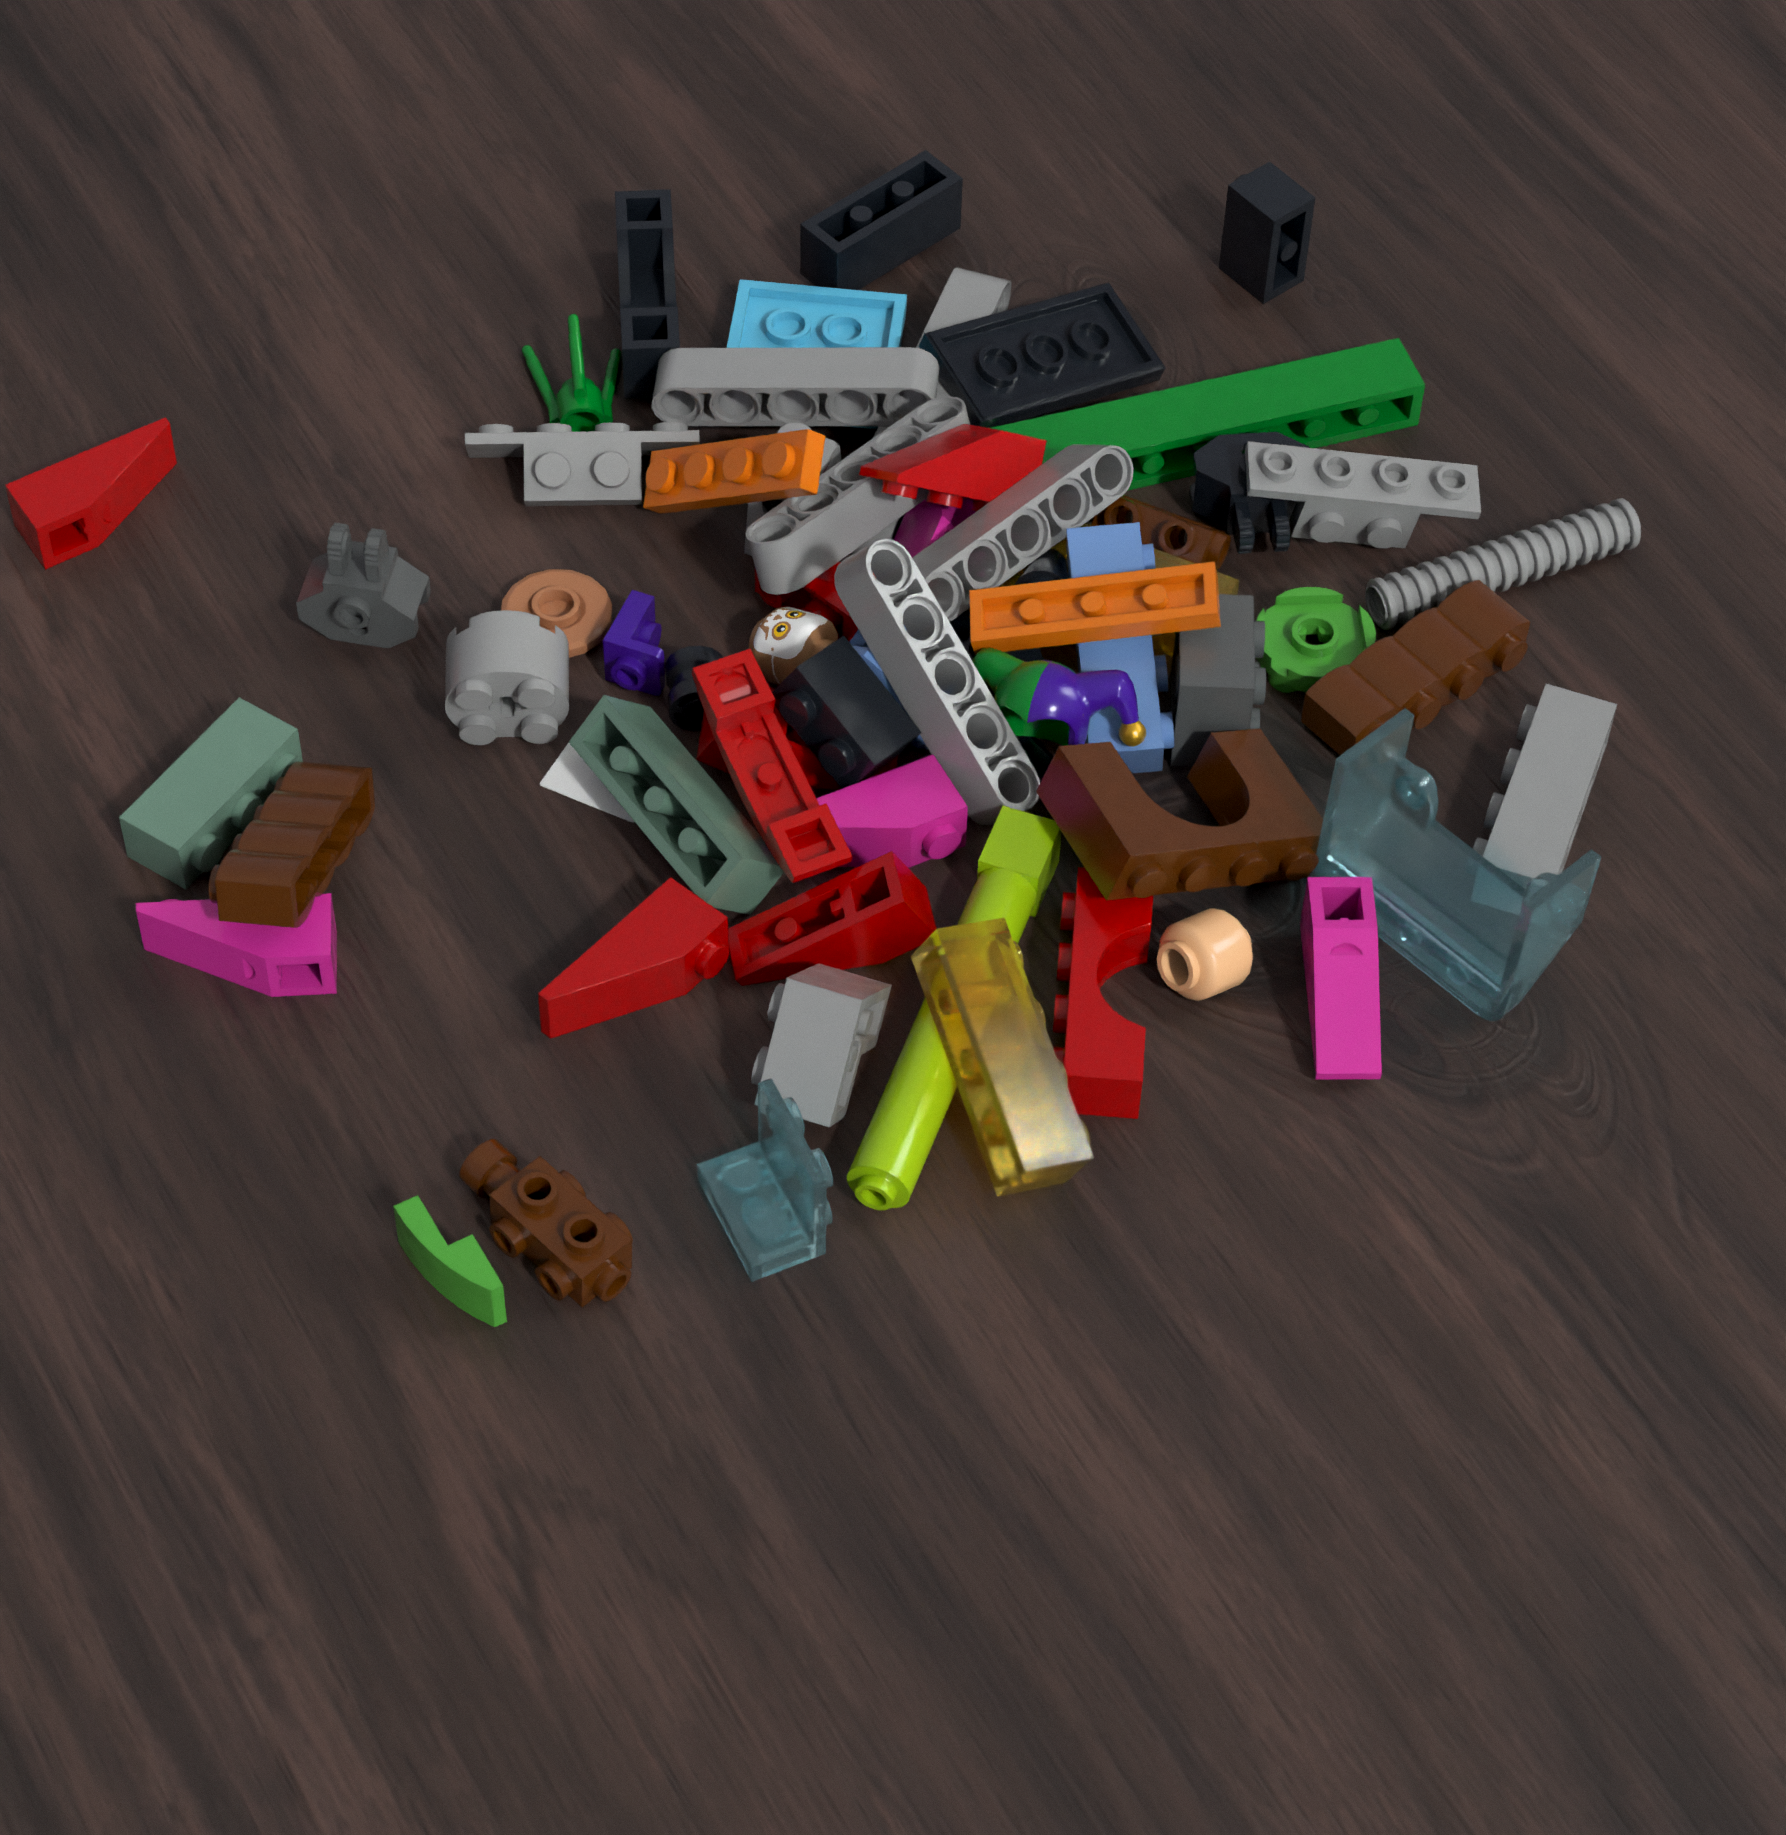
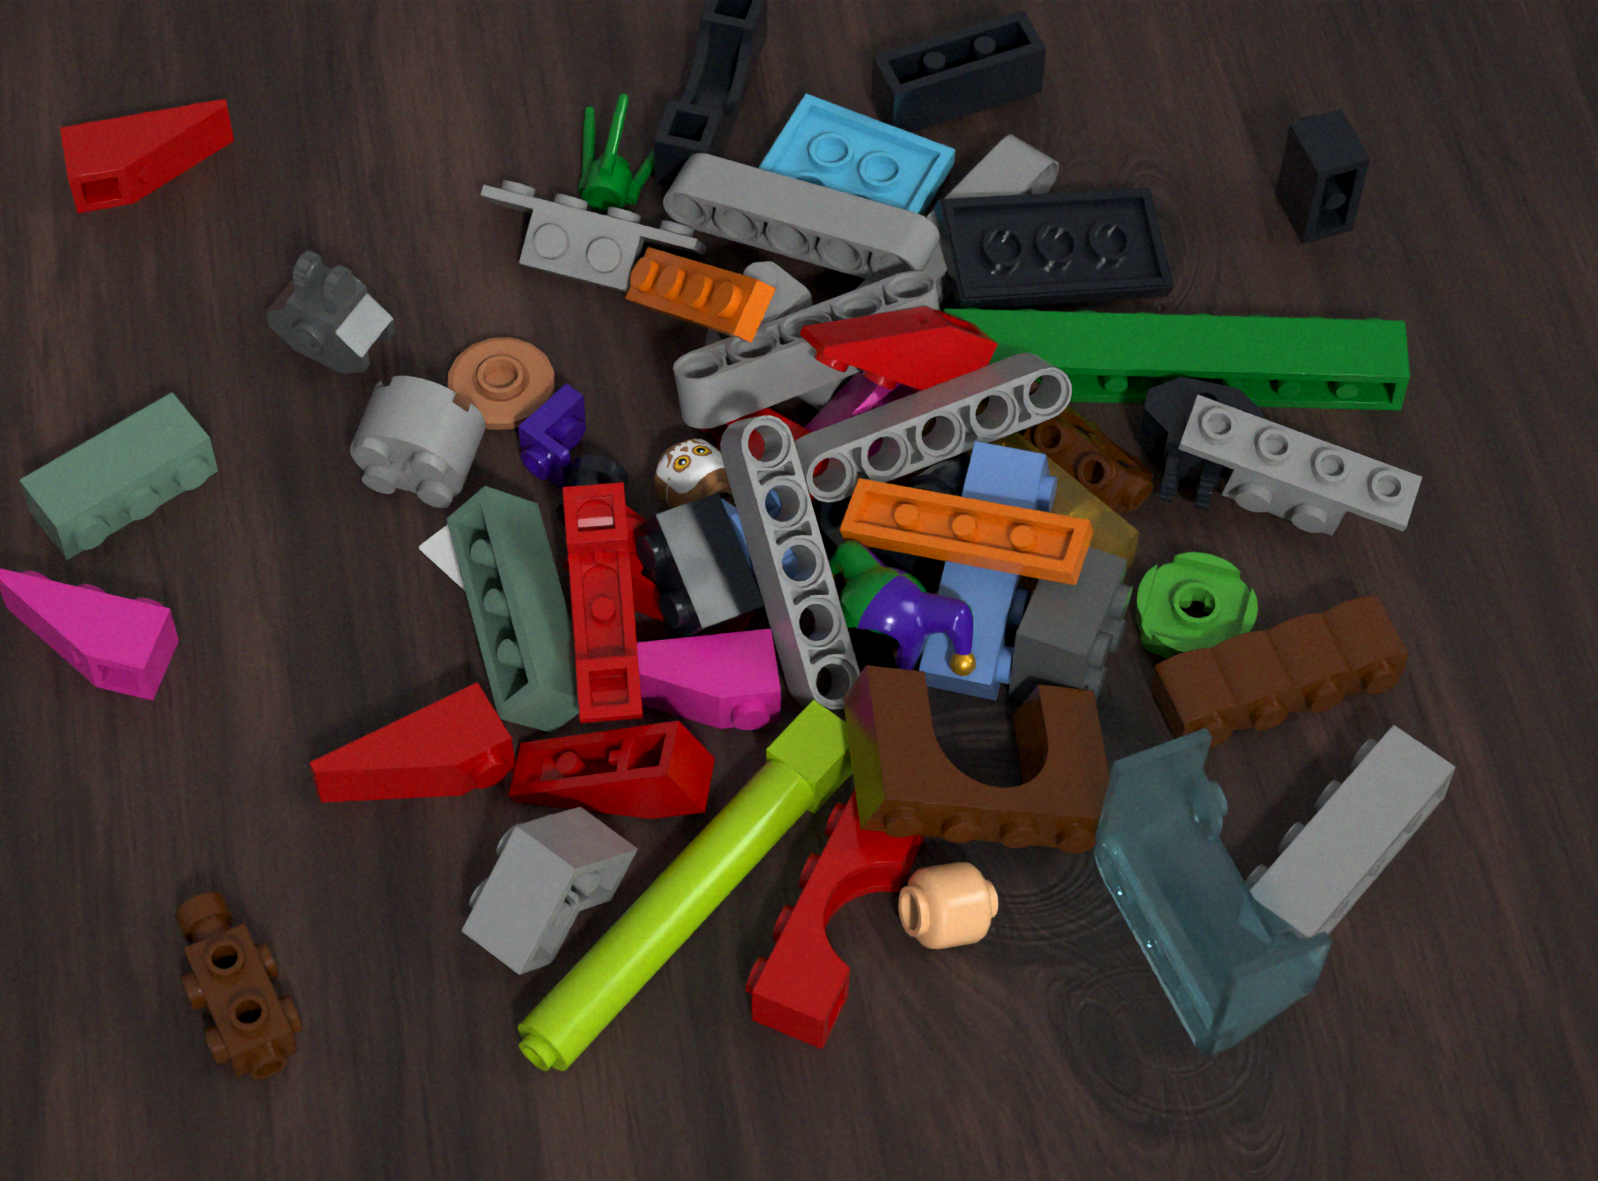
camera: 20 degrees right, 5 degrees up
(293, 845) = (155, 552): reddish brown brick -> none
(454, 1270) = (132, 1005): bright green slope -> none
(772, 1190) = (439, 1025): clear light blue bracket -> none
(1002, 1056) = (700, 957): clear yellow brick -> none
(1342, 977) = (1065, 972): dark pink slope -> none
(1505, 561) = (1419, 581): light grey piece -> none

